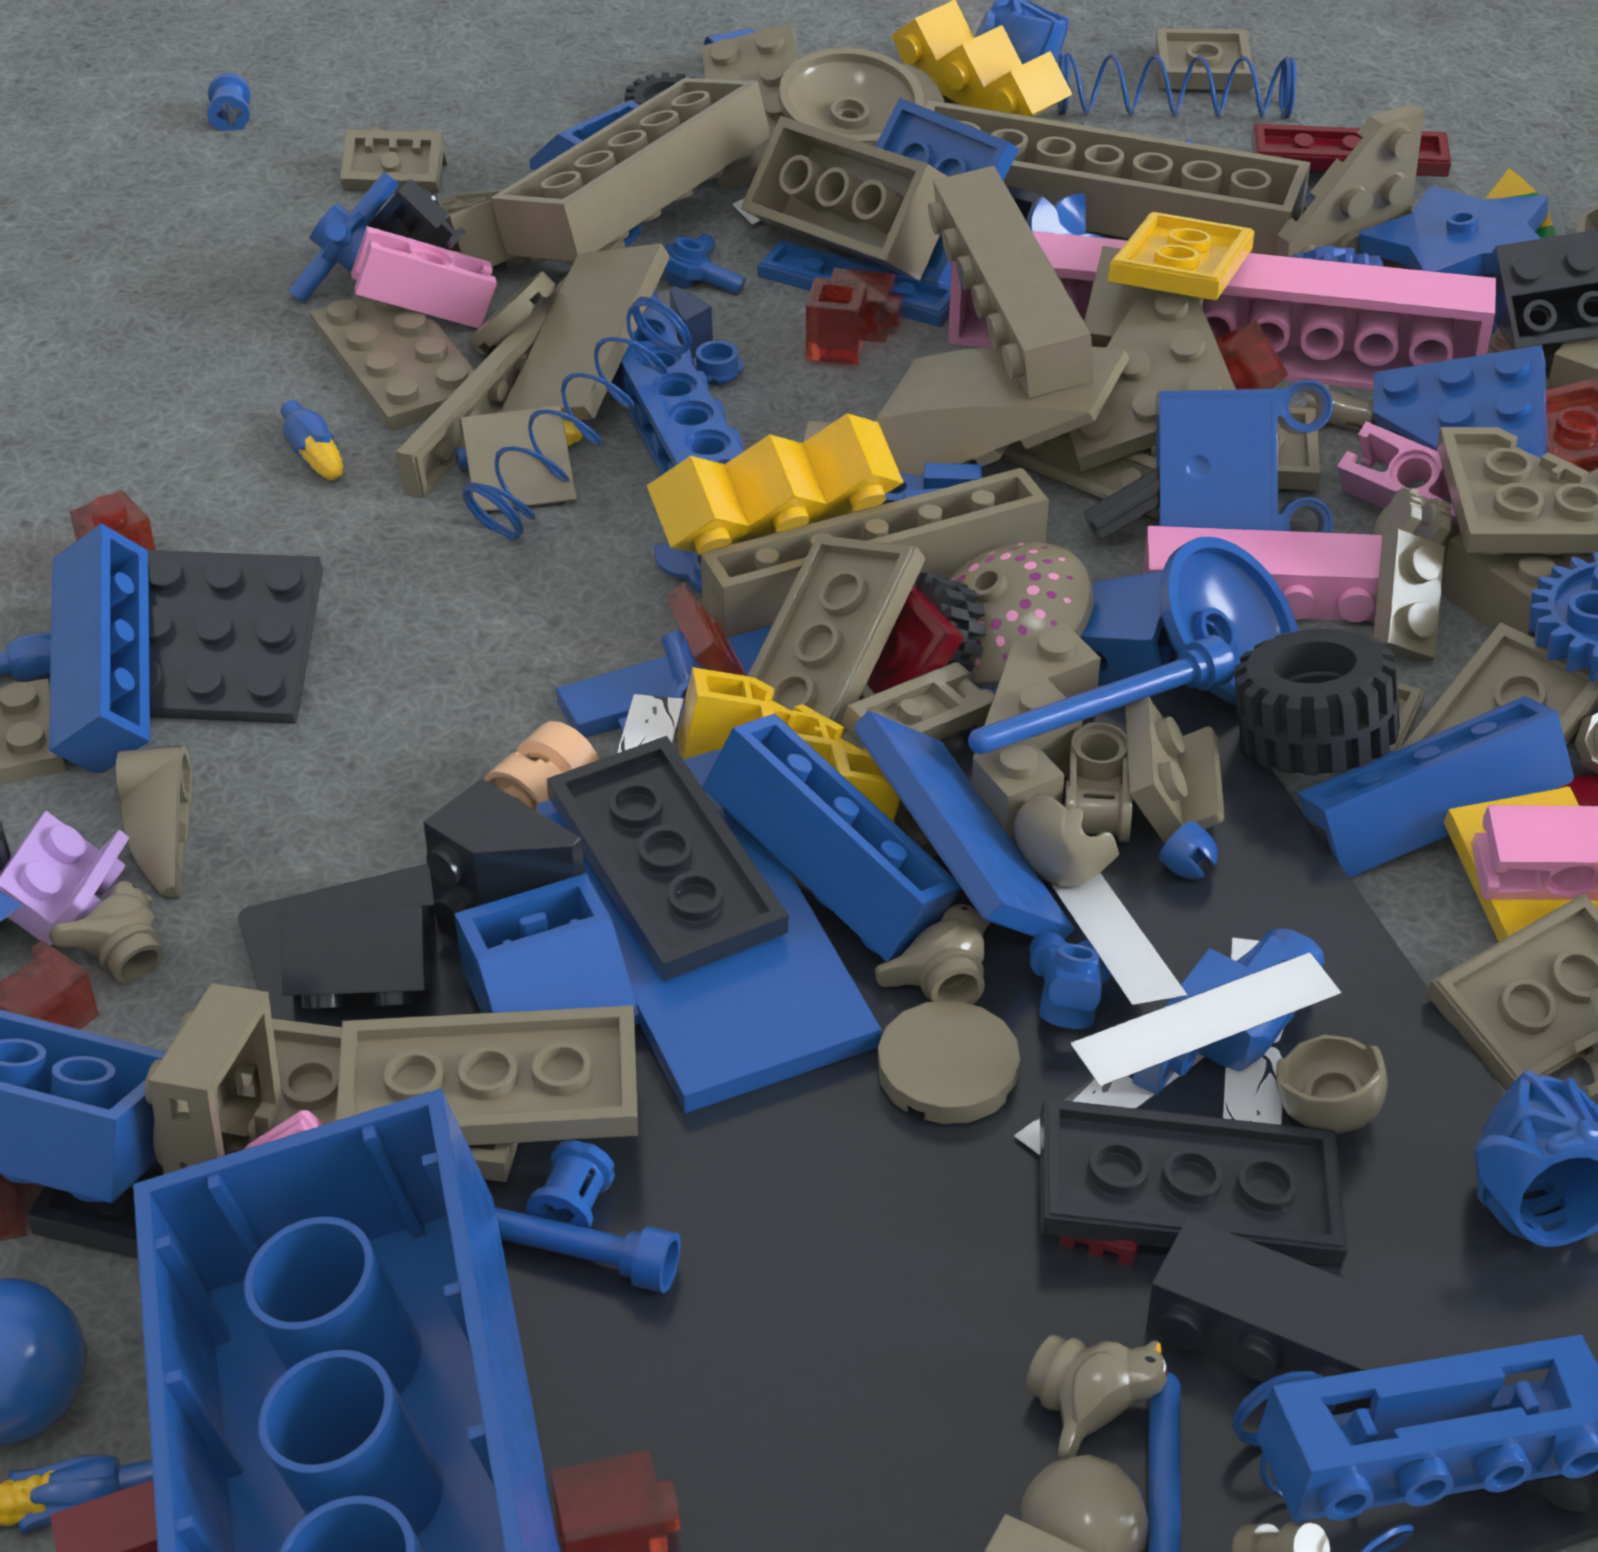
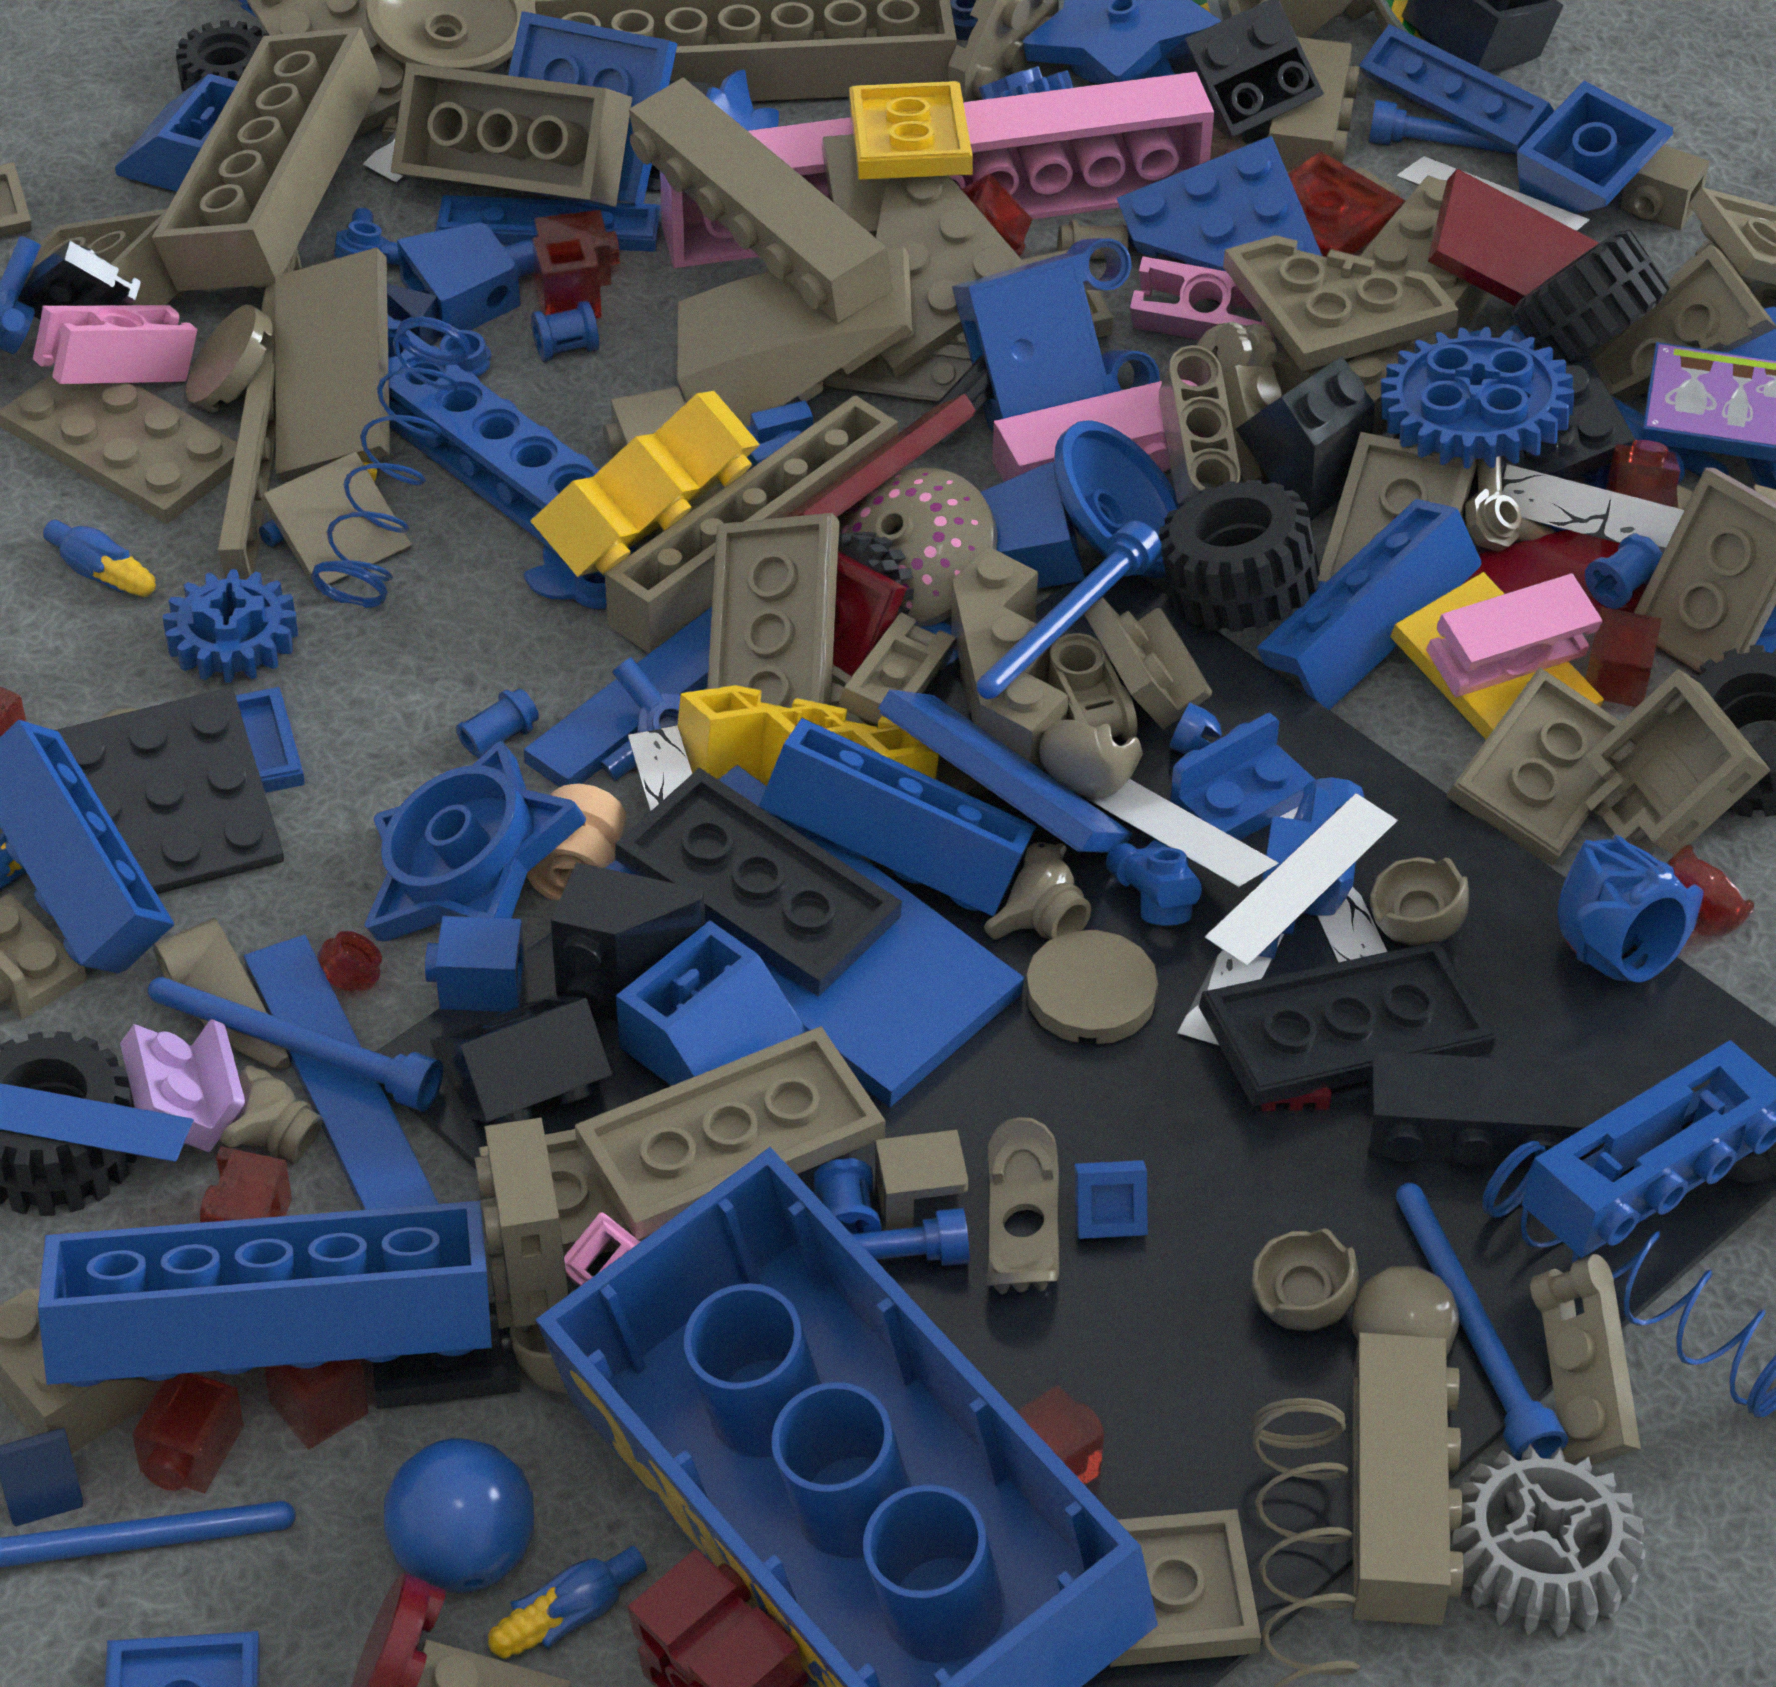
camera: 25 degrees left, 5 degrees up
(207, 903) = (353, 1107): none -> blue tile
(250, 935) = (410, 1078): none -> blue piece
(283, 821) = (350, 961): none -> clear red plate
(345, 618) = (271, 739): none -> blue tile
(375, 518) = (230, 625): none -> blue gear
(377, 854) = (477, 963): none -> blue brick
(434, 748) = (465, 845): none -> blue plate
(549, 660) = (498, 722): none -> blue pin
(652, 1178) = (916, 1169): none -> dark tan panel
(704, 633) = (649, 654): clear red tile -> none
(754, 300) = (466, 272): none -> blue torso
(765, 1228) = (1023, 1178): none -> dark tan piece
(814, 364) = (565, 331): none -> blue bush
(835, 1277) = (1111, 1199): none -> blue tile
(990, 1436) = (1305, 1280): none -> dark tan hair
(1019, 528) = (888, 458): none -> dark red tile
(1092, 1383) = (1361, 1209): dark tan animal -> none
(1205, 906) = (1240, 779): none -> blue bracket
(1341, 561) = (1202, 410): none -> dark tan beam
(1445, 610) = (1312, 434): none -> black slope

